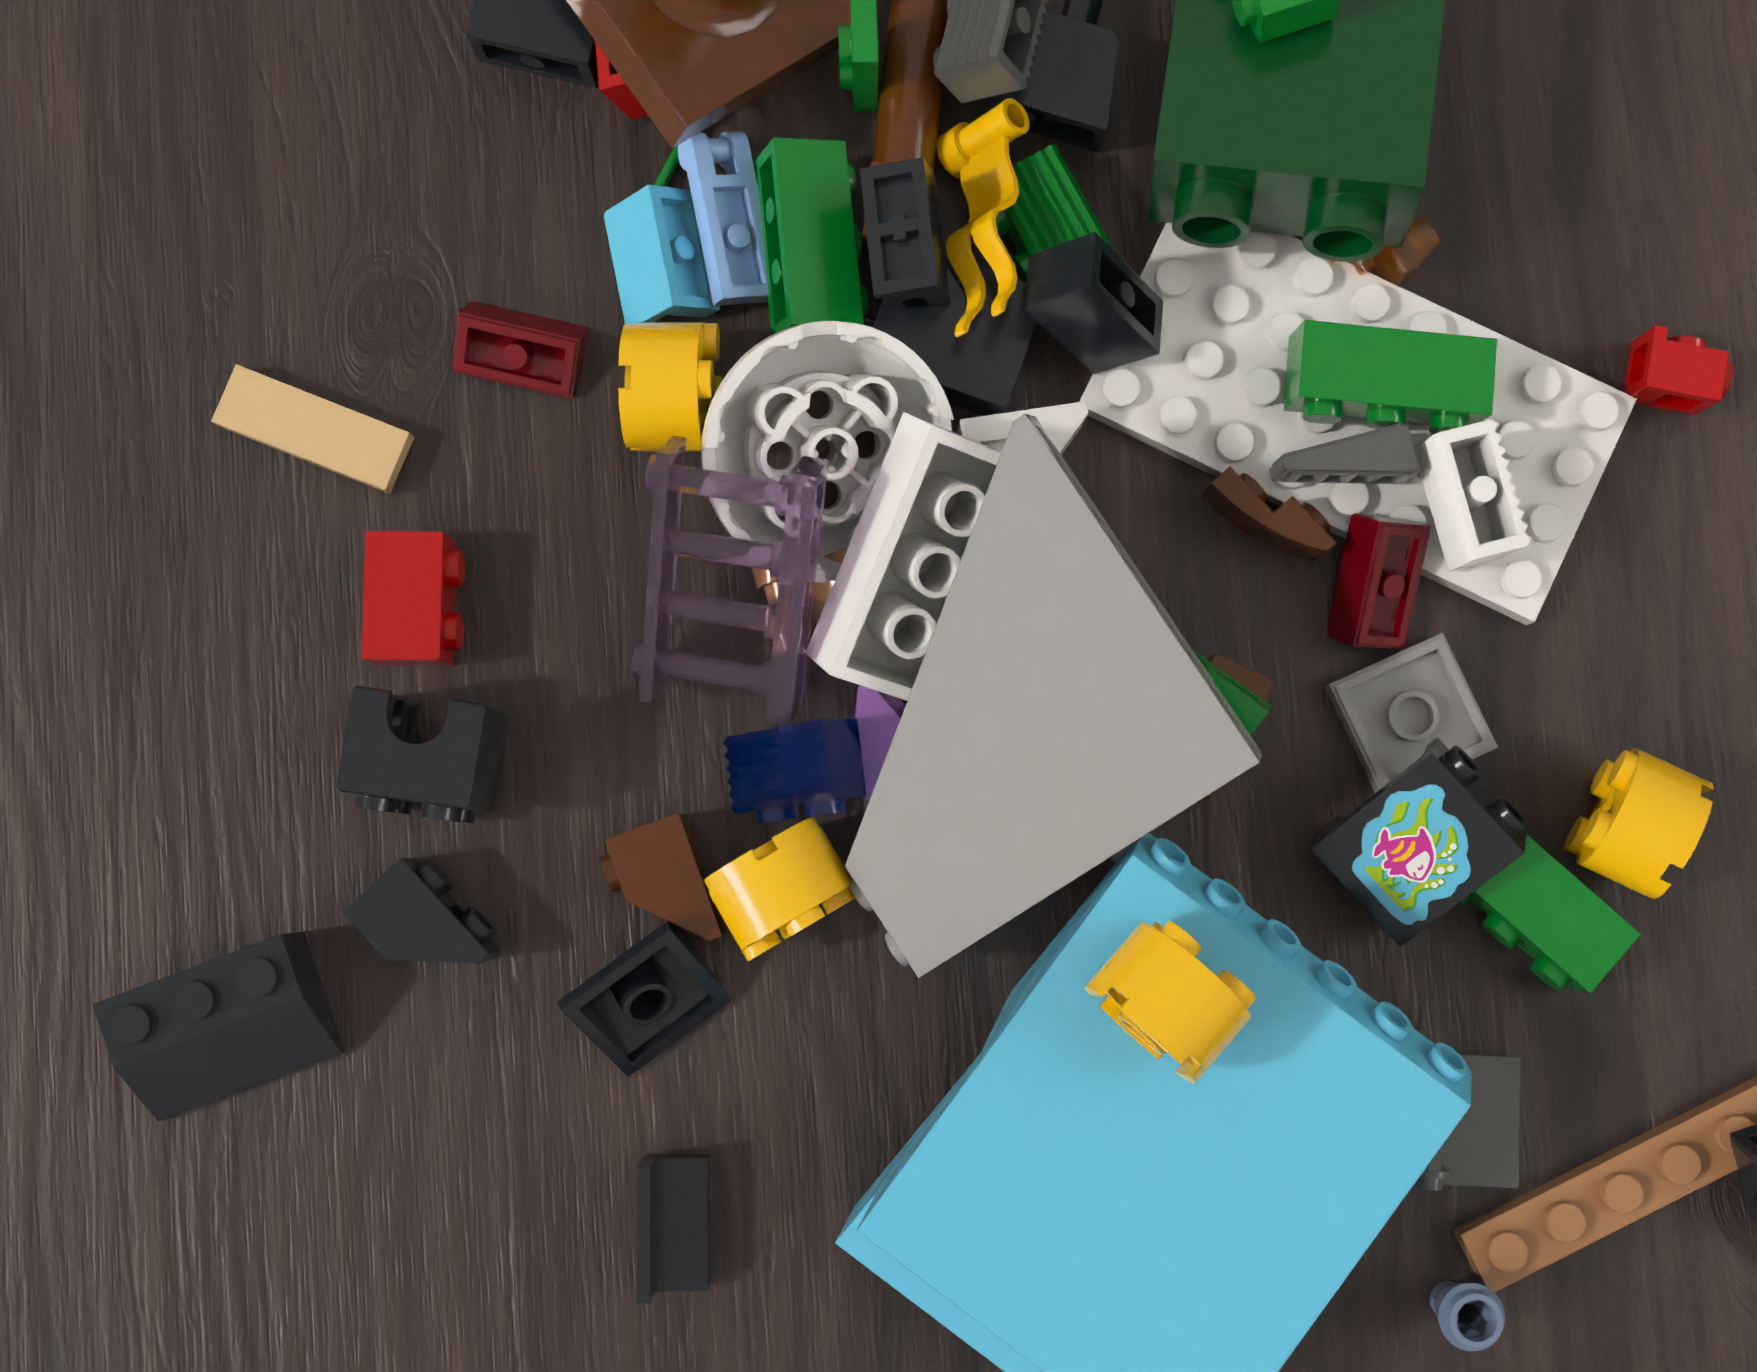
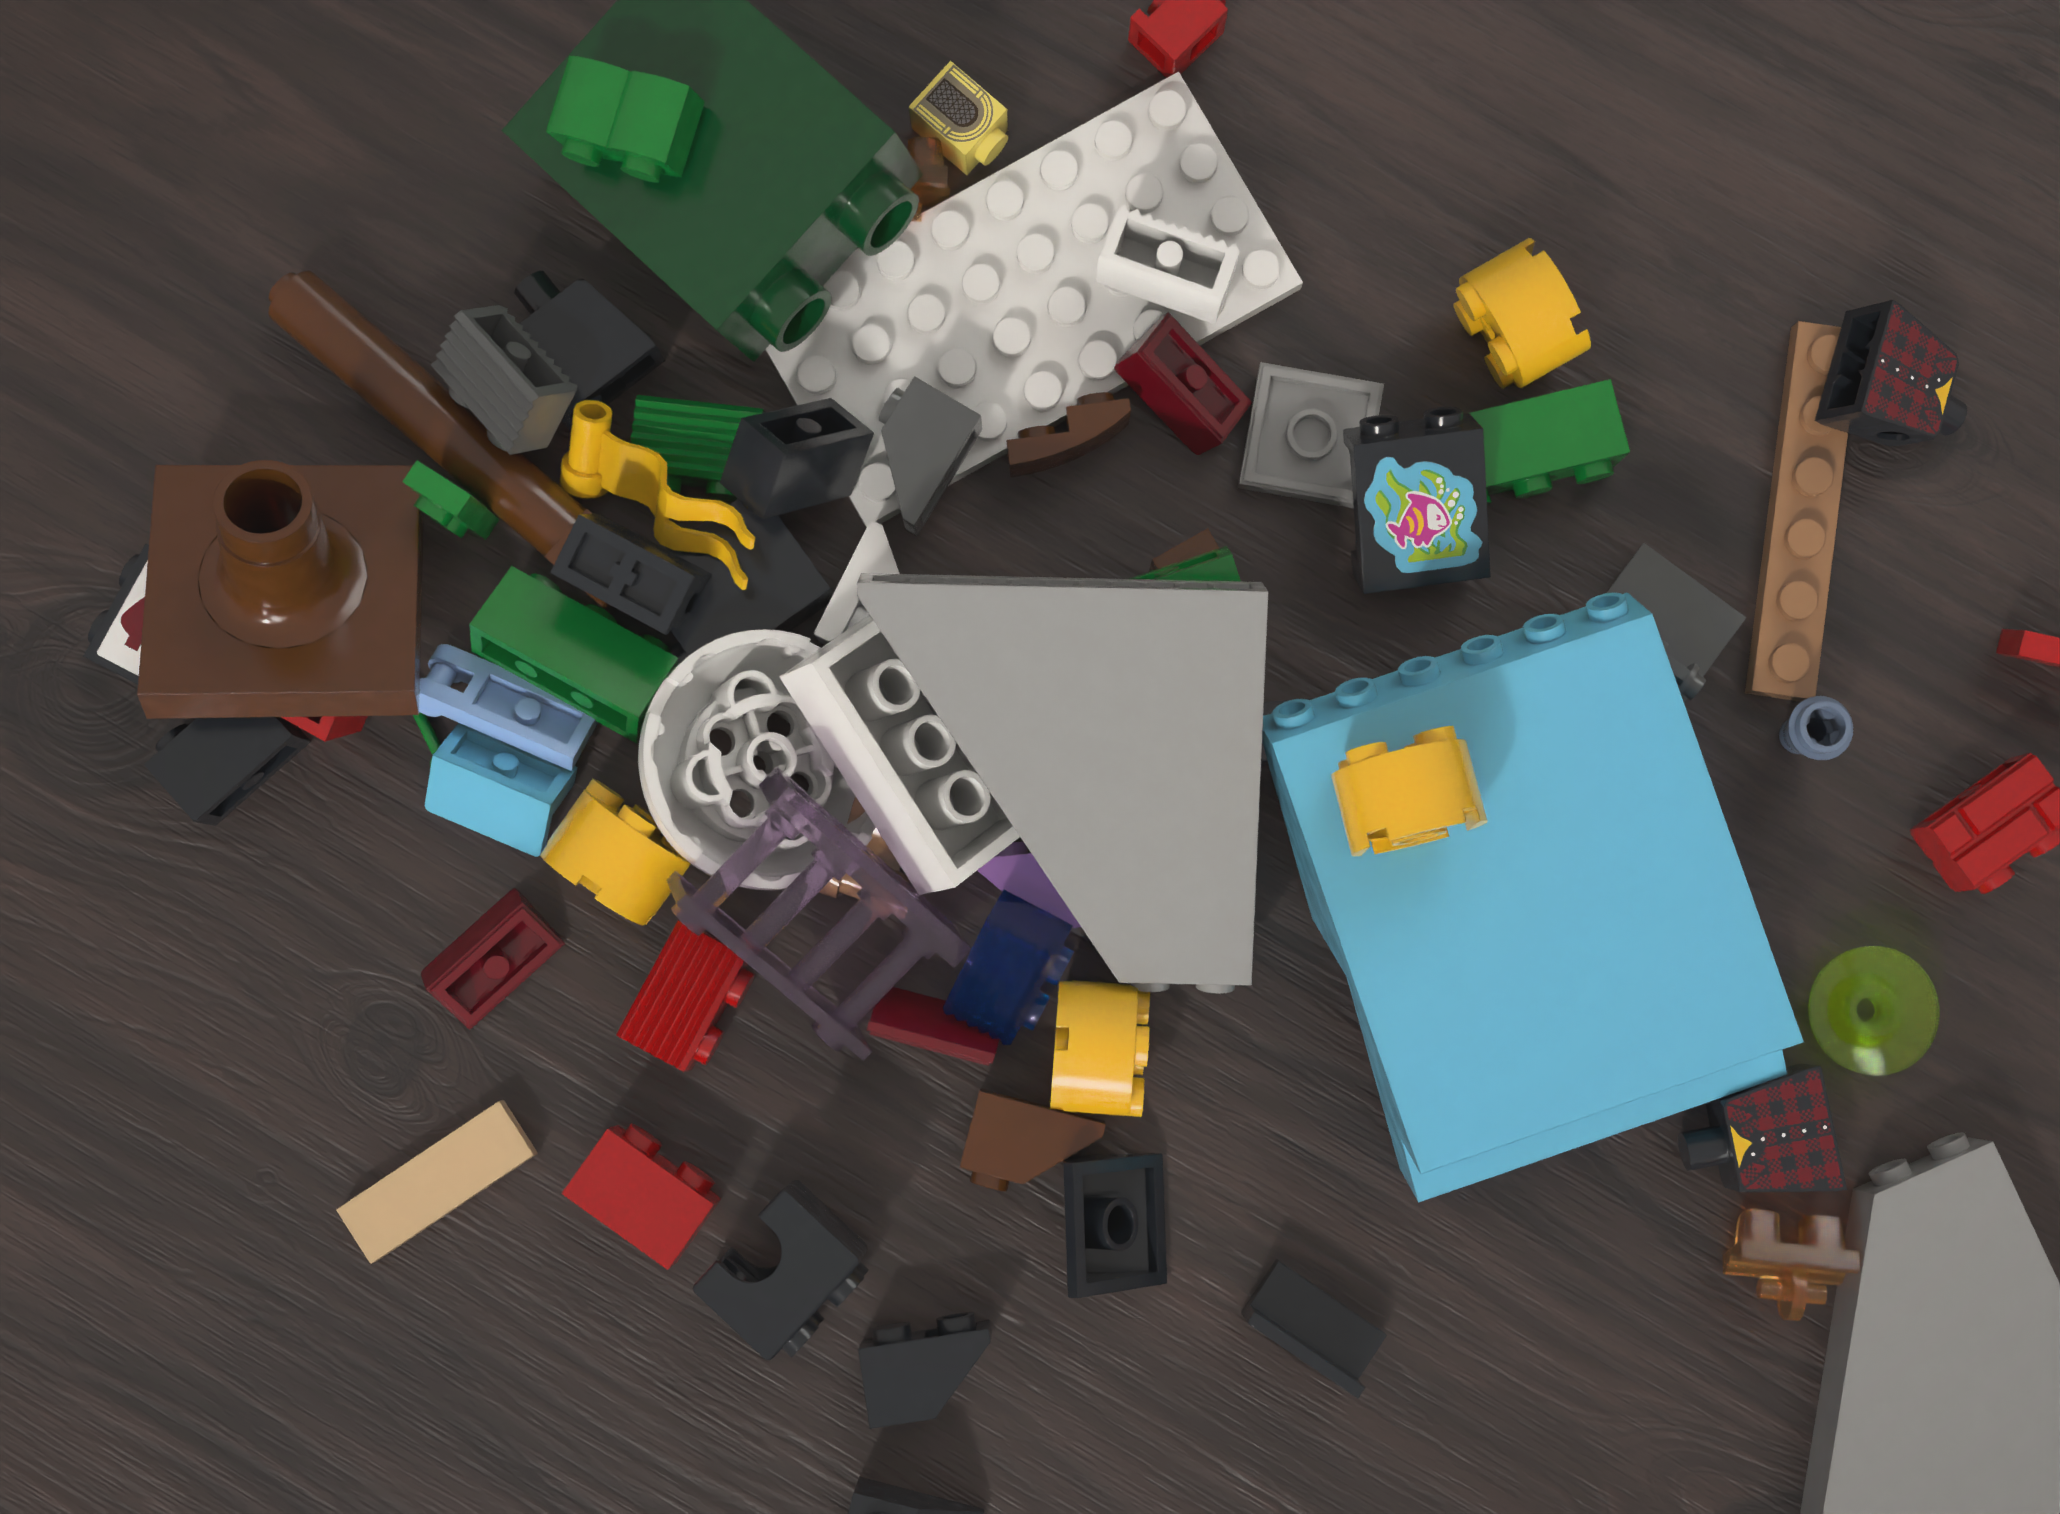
camera: 50 degrees left, 0 degrees up
(589, 524) = (685, 999): none -> red brick
(702, 729) = (923, 1024): none -> dark red slope
(1178, 403) = (925, 446): none -> dark grey slope
(1364, 458) = (1077, 325): dark grey slope -> none
(1389, 376) = (1023, 260): green brick -> none
(1470, 248) = (961, 117): none -> brick

